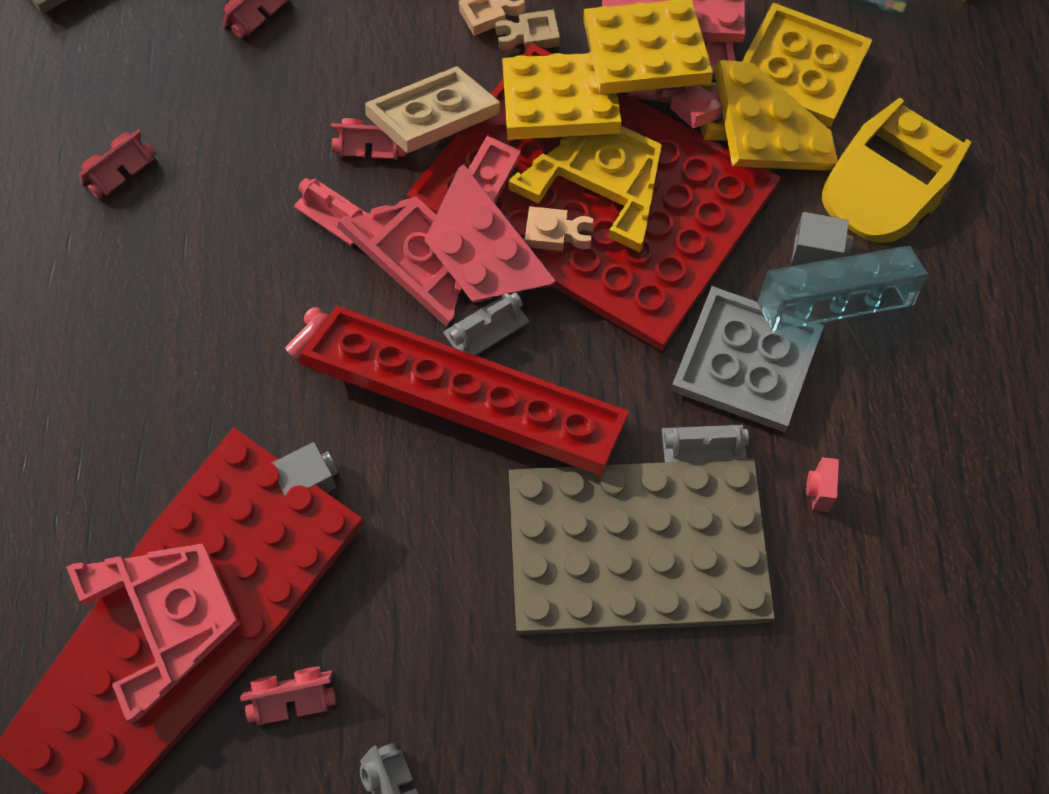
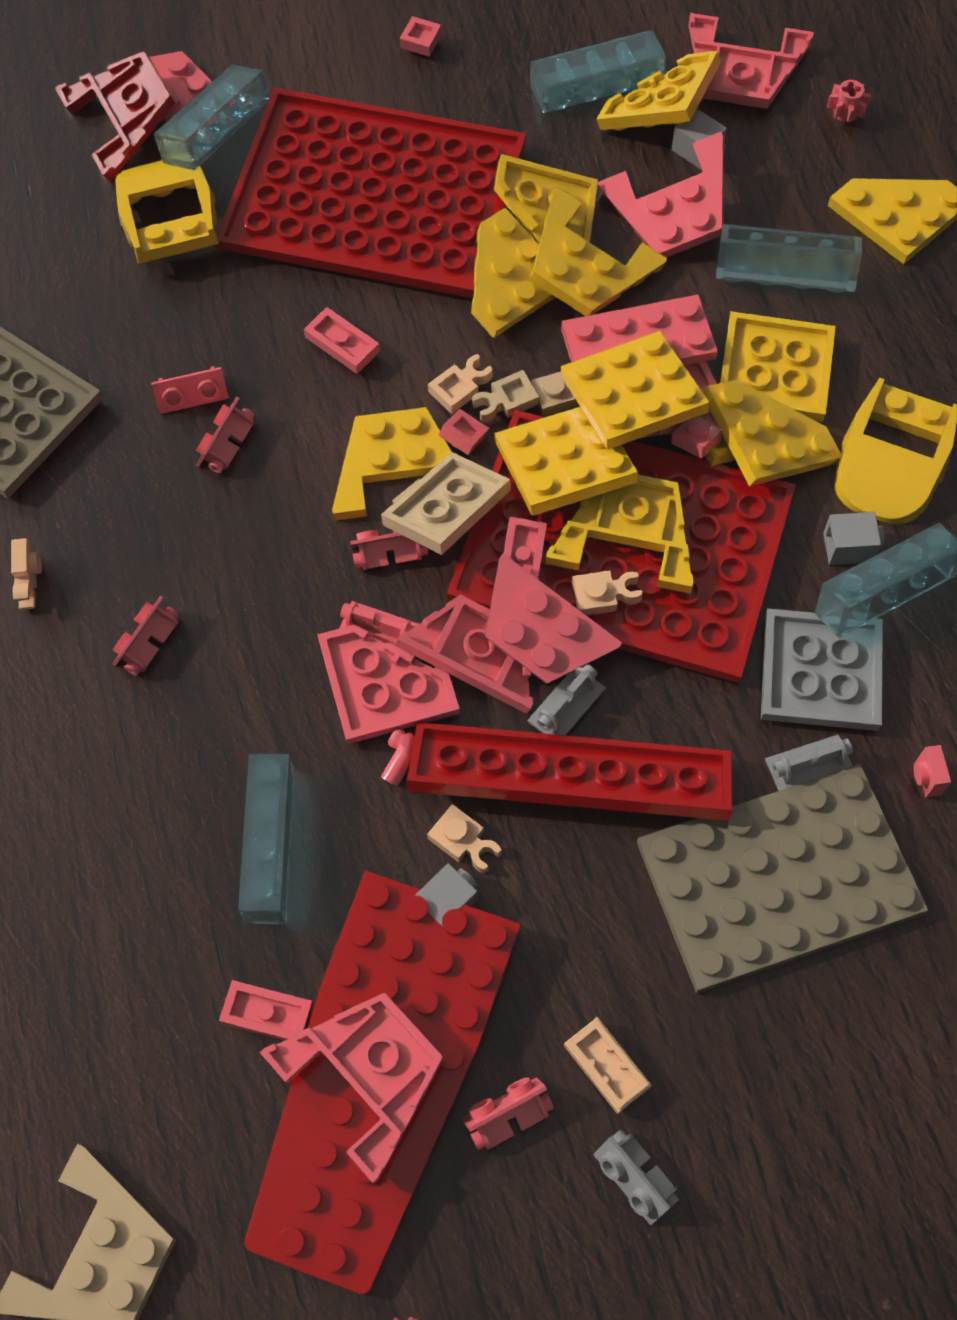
camera: 15 degrees left, 0 degrees up
(31, 77) = (24, 567): none -> light nougat plate
(94, 532) = (265, 1011): none -> coral plate
(155, 375) = (267, 839): none -> clear light blue brick
(315, 263) = (382, 685): none -> coral plate
(341, 423) = (460, 835): none -> light nougat plate
(396, 52) = (386, 449): none -> yellow wing
(401, 678) = (607, 1065): none -> light nougat plate
(477, 52) = (463, 432): none -> coral plate
(573, 38) = (553, 394): none -> tan plate

